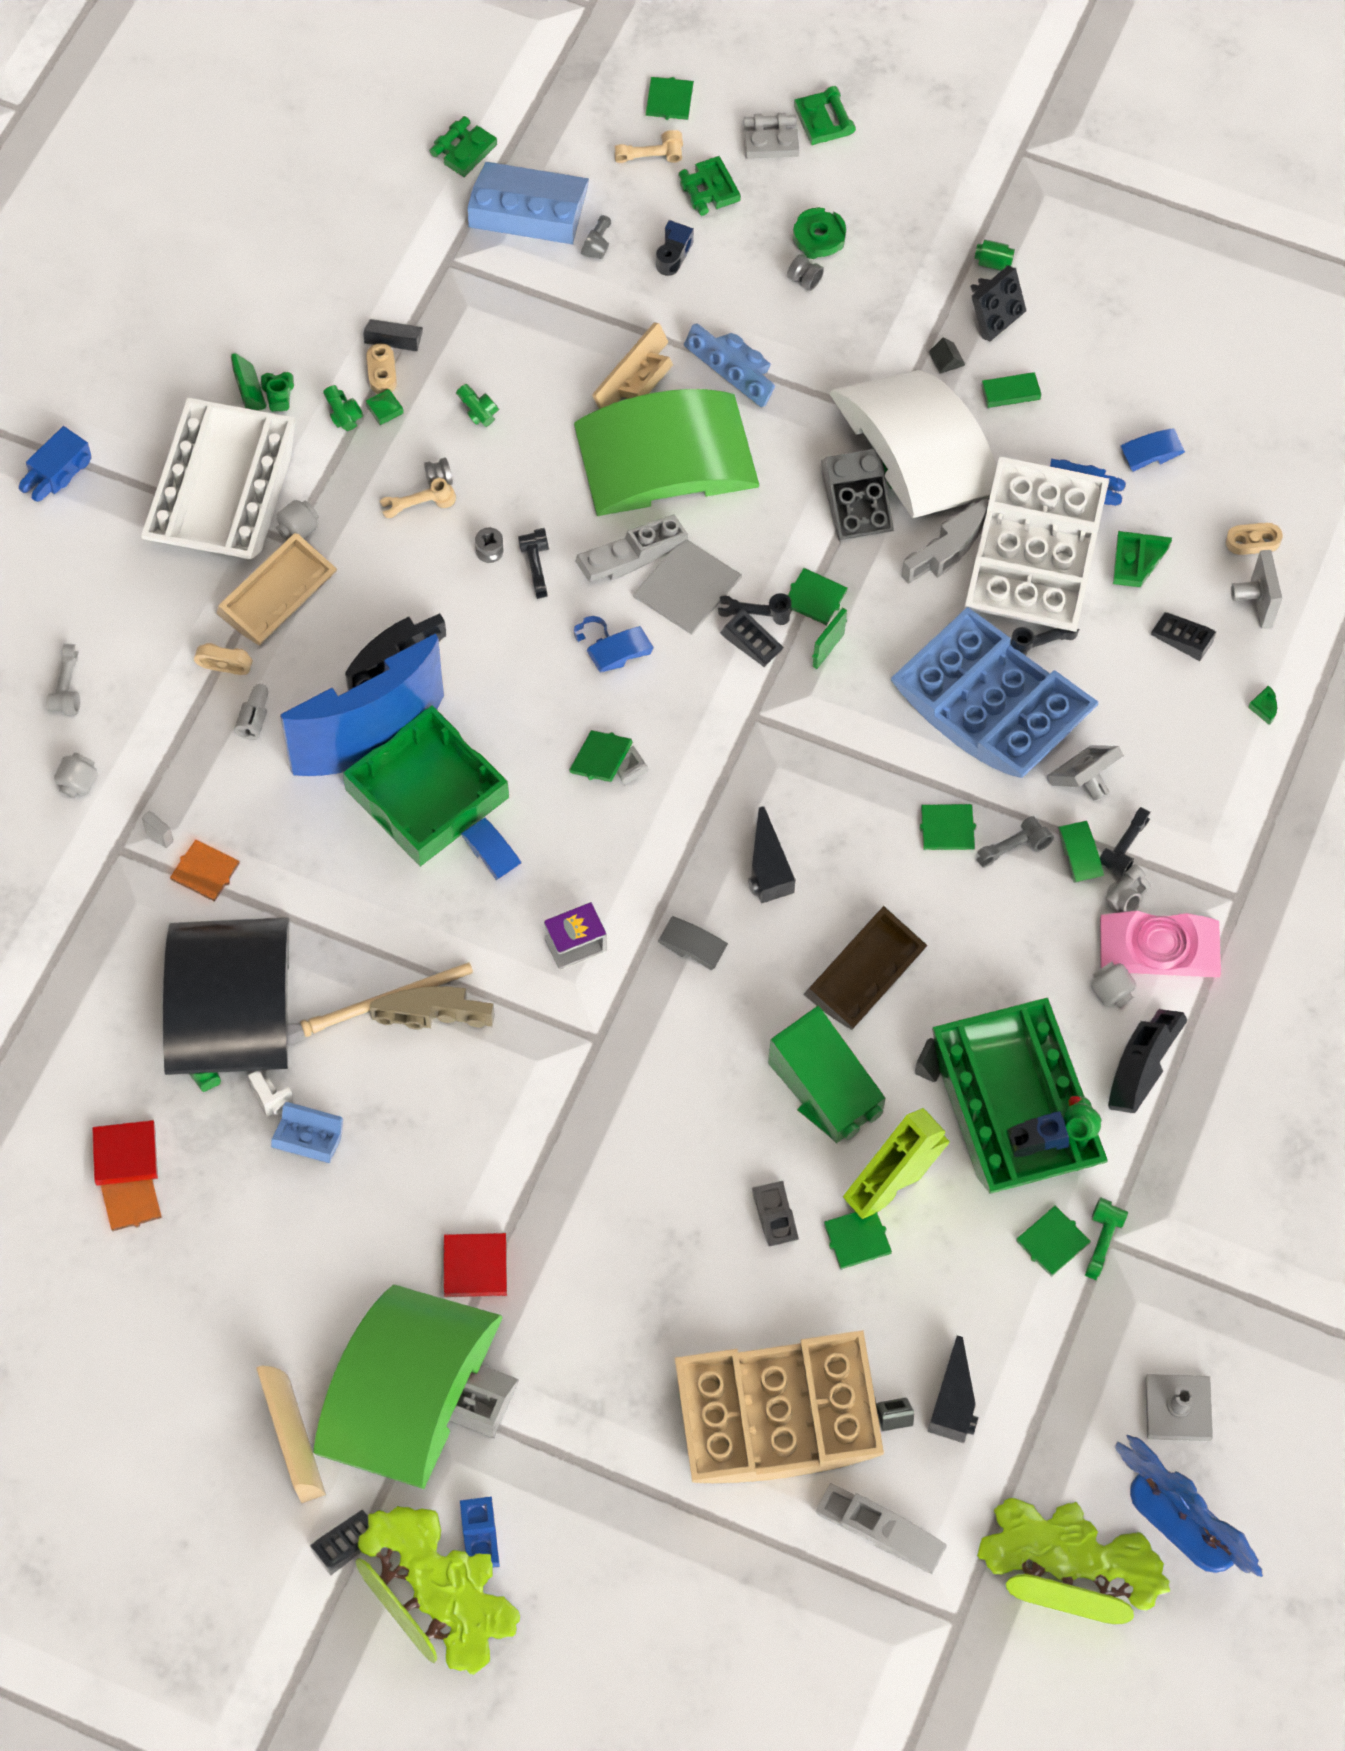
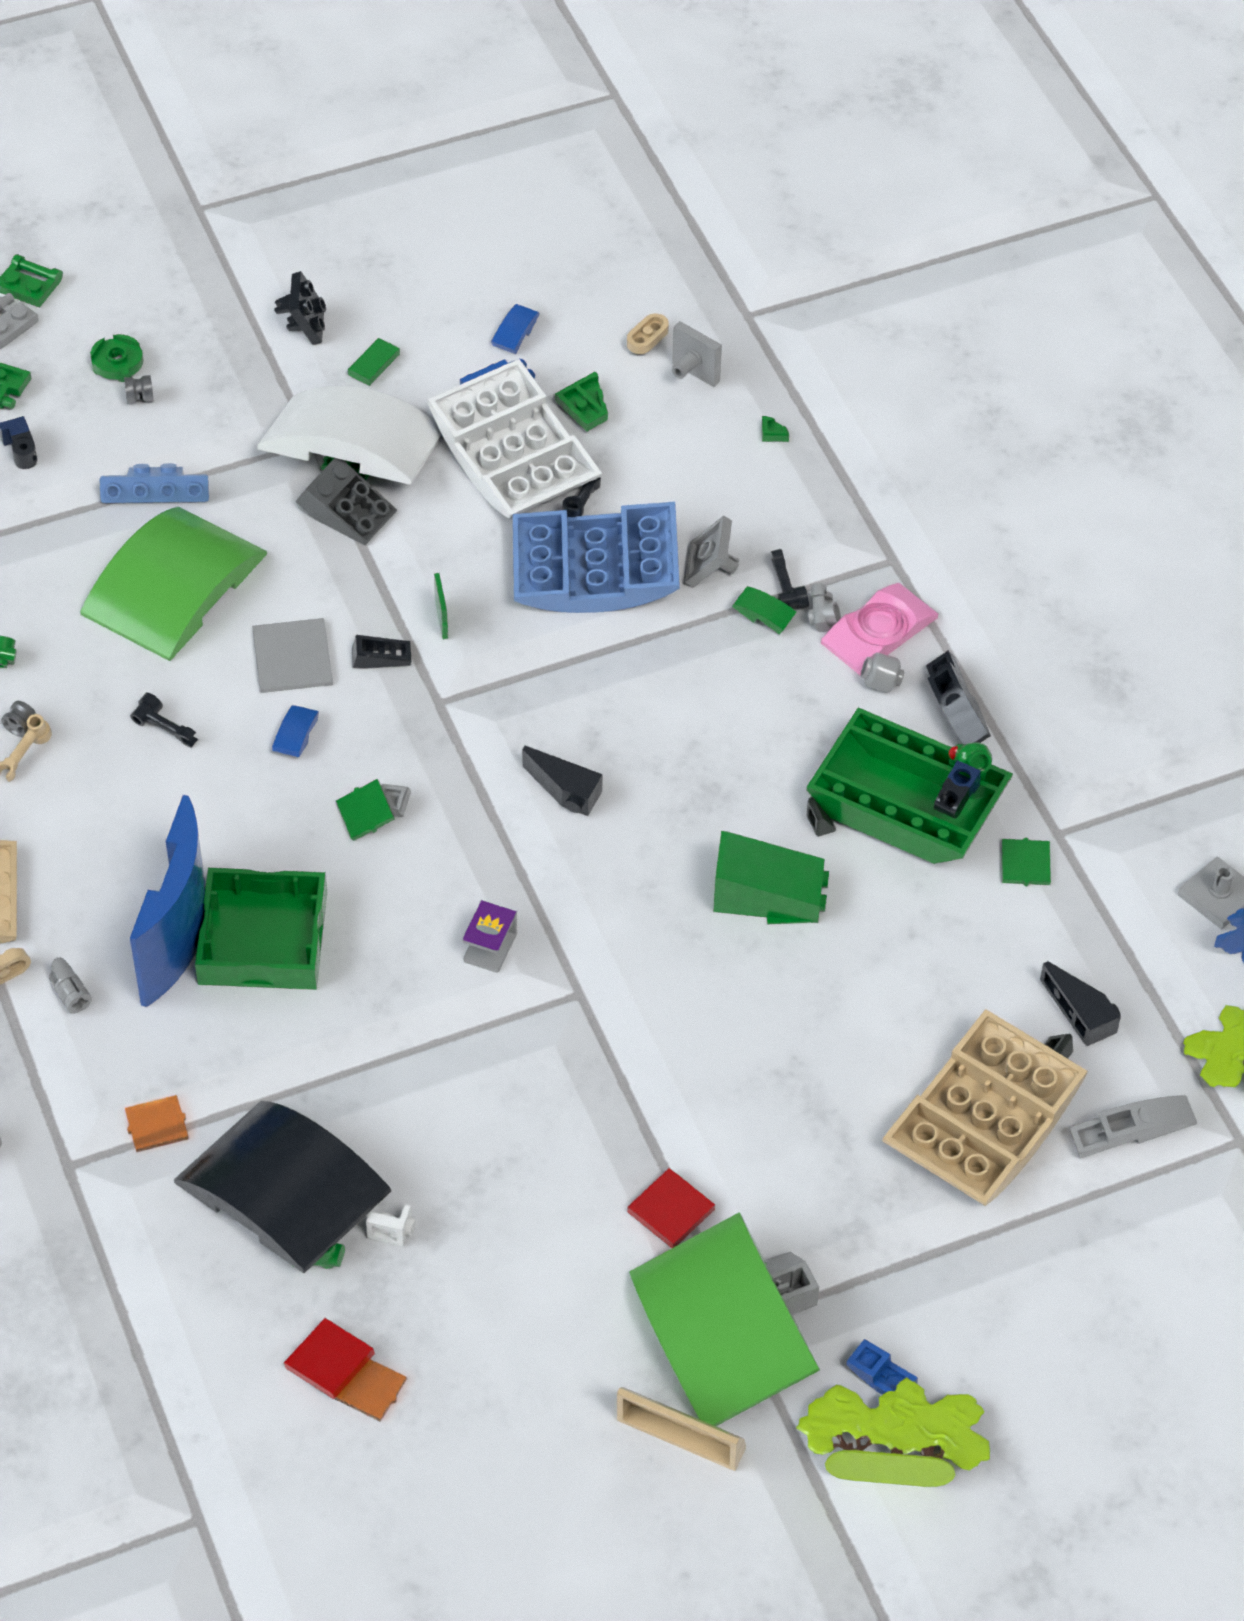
camera: 45 degrees left, 10 degrees down
(157, 829) = (90, 1122): light grey tile -> none
(304, 1028) = (370, 1149): tan piece -> none
(308, 1132) = (451, 1224): medium blue bracket -> none
(328, 1539) = (797, 1486): black slope -> none
(391, 641) = (125, 859): black slope -> none
(420, 1005) = (434, 1072): dark tan slope -> none
(491, 552) = (111, 742): flat silver wheel -> none
(491, 848) = (357, 930): blue slope -> none
(587, 620) = (258, 725): blue piece -> none
(634, 551) = (229, 658): light grey slope -> none
(637, 371) = (92, 540): tan bracket -> none
(693, 941) = (568, 876): dark grey slope -> none
(775, 1213) = (833, 1000): black slope -> none
(778, 608) = (380, 619): black brick -> none
(816, 596) = (392, 593): green piece -> none
(857, 1239) = (902, 967): green piece -> none
(866, 969) = (708, 794): dark brown slope -> none
(897, 1163) = (885, 886): lime brick -> none
(946, 356) = (302, 373): pearl dark grey slope -> none
(948, 827) = (656, 666): green piece -> none
(954, 542) = (448, 486): light grey slope -> none
(994, 255) = (263, 283): green brick -> none
(1032, 833) = (718, 624): dark grey brick -> none
(1111, 1218) = (1047, 815): green brick -> none
(1187, 646) = (684, 417): black slope -> none

